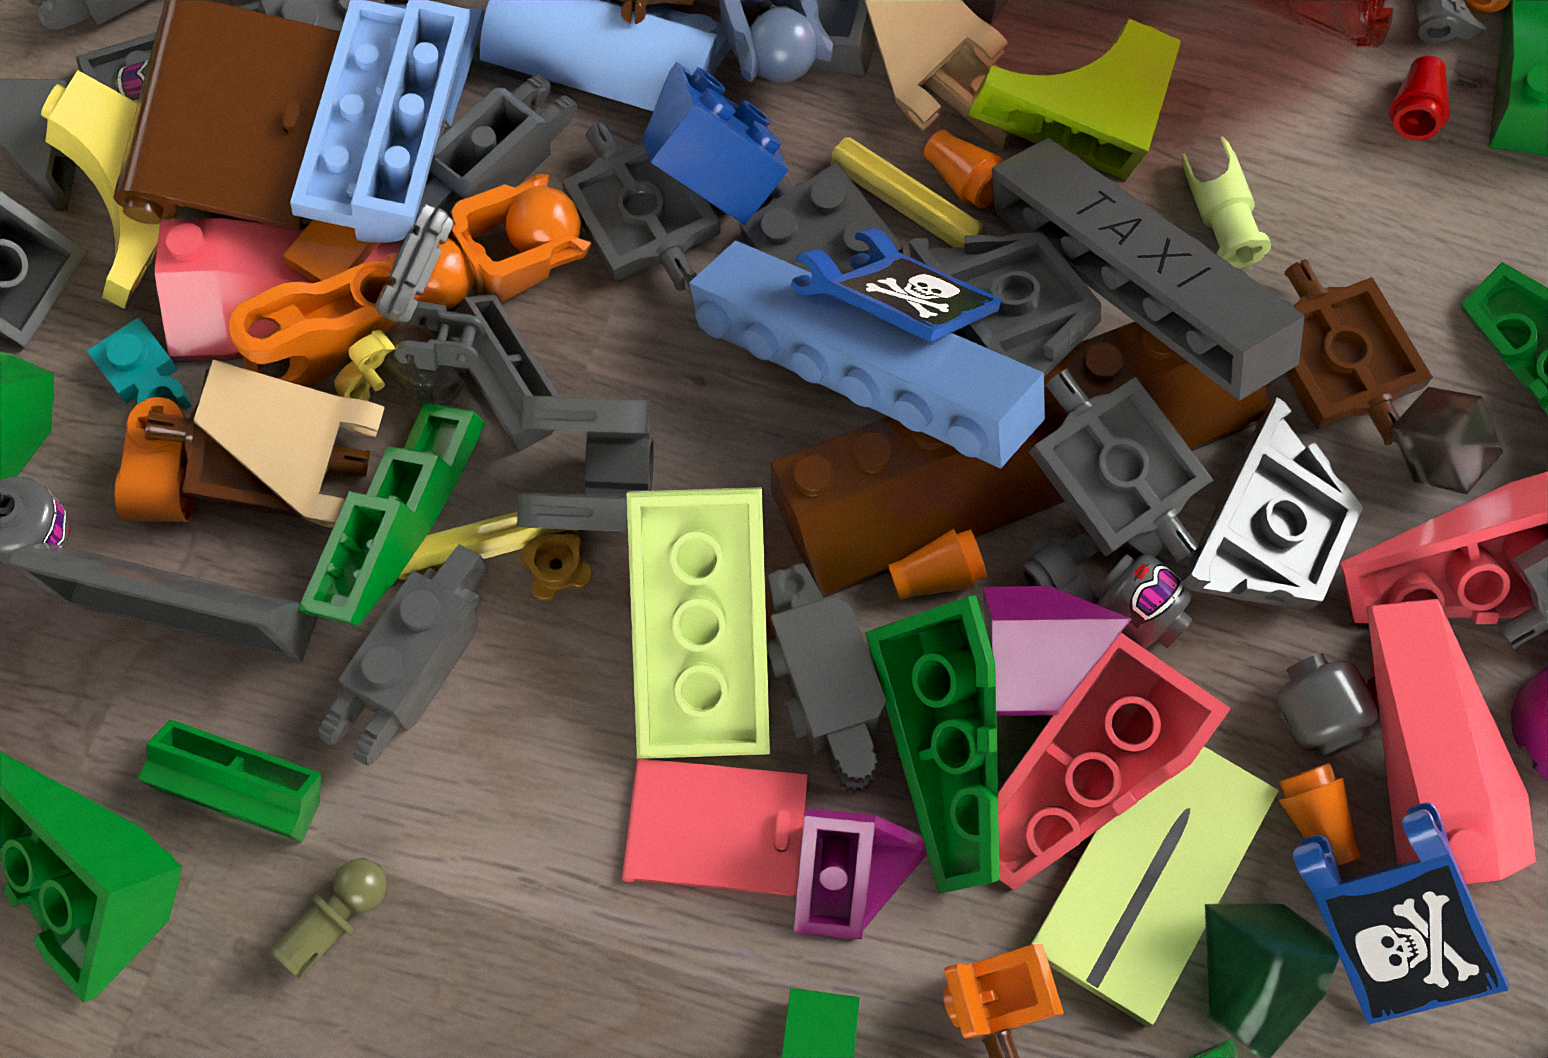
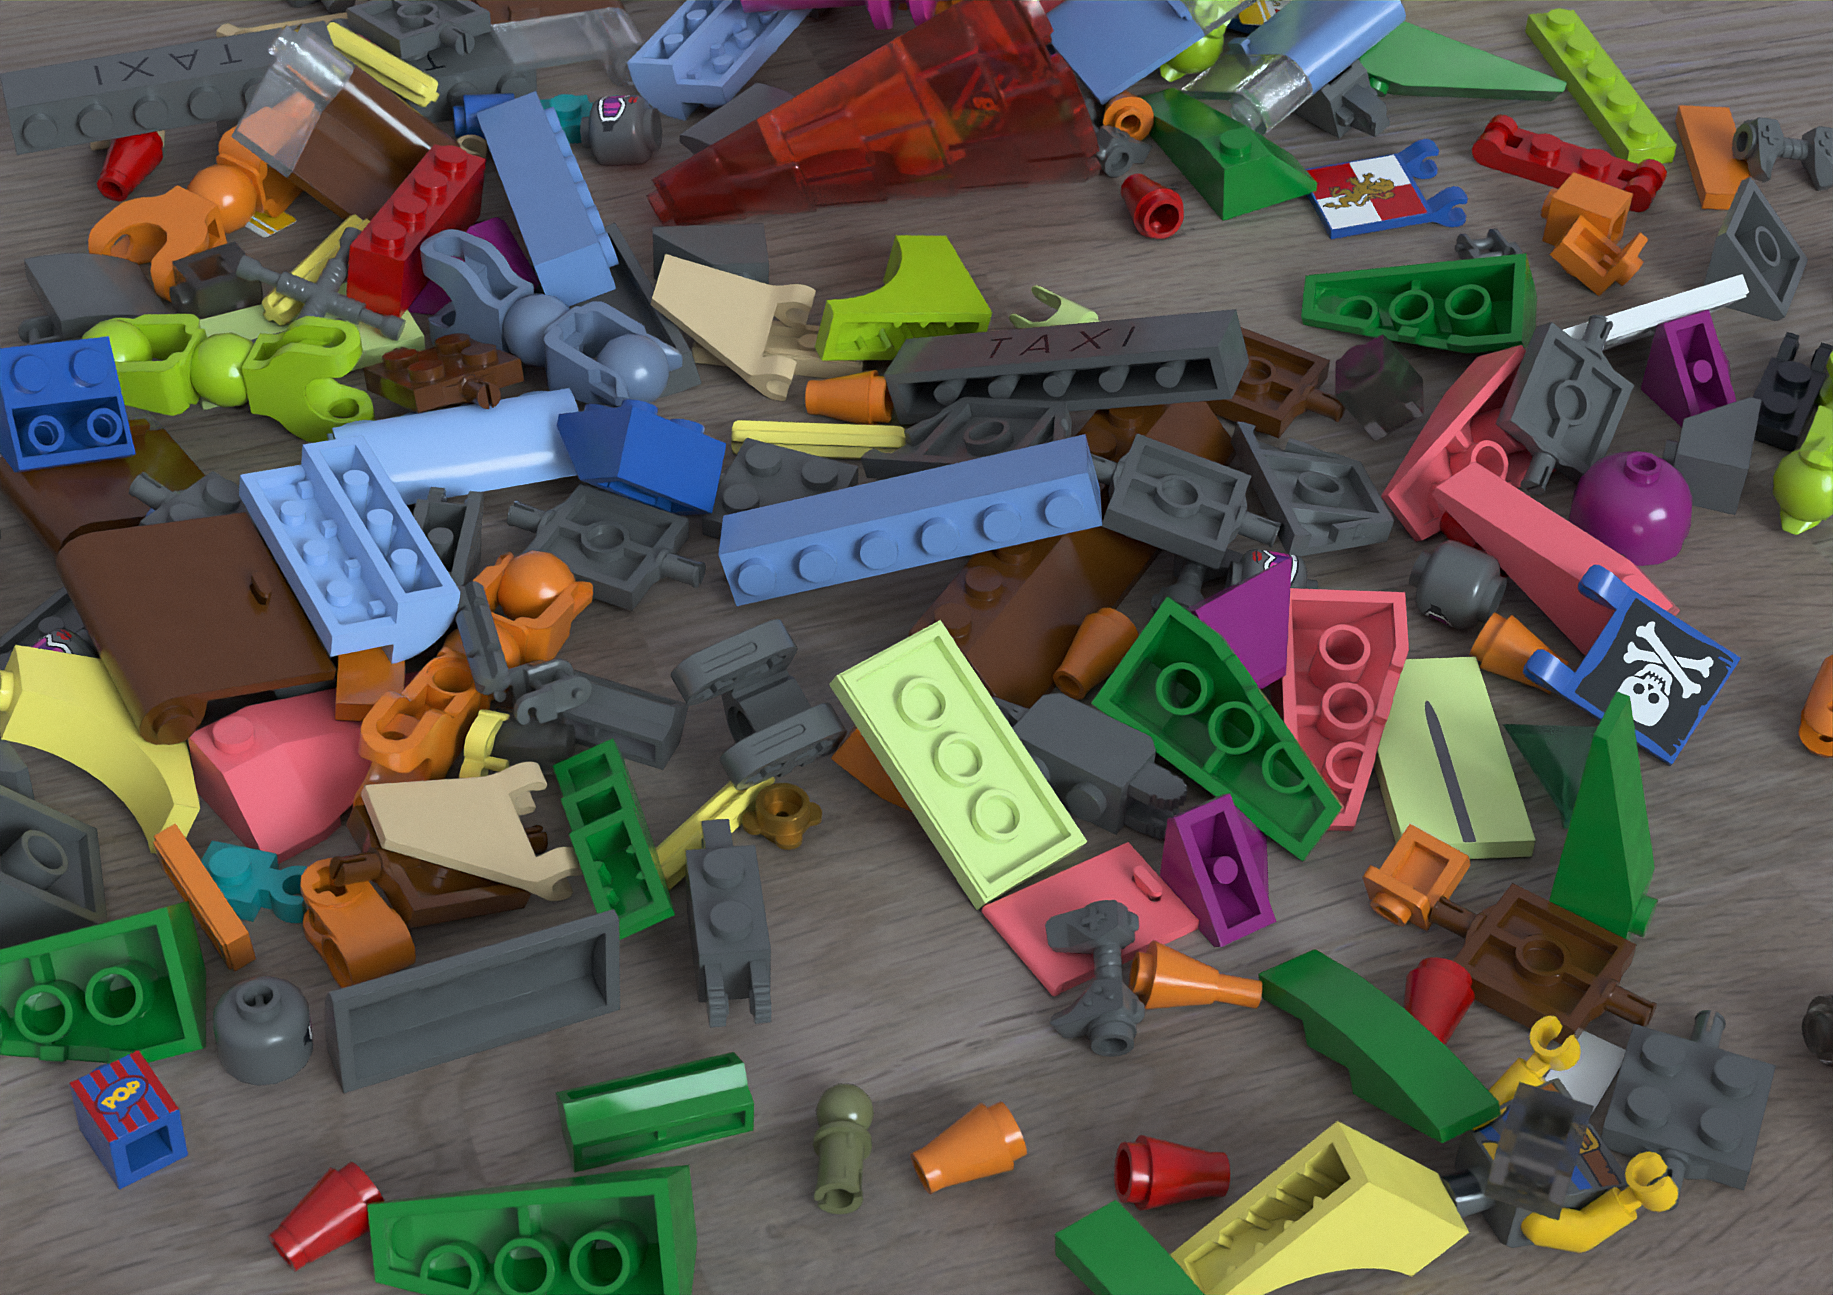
camera: 40 degrees left, 25 degrees down
(71, 374) = (205, 898): none -> orange tile
(420, 992) = (971, 1148): none -> orange cone
(635, 938) = (1107, 1008): none -> dark grey piece
(716, 946) = (1176, 980): none -> orange cone
(897, 288) = (865, 468): flag -> none

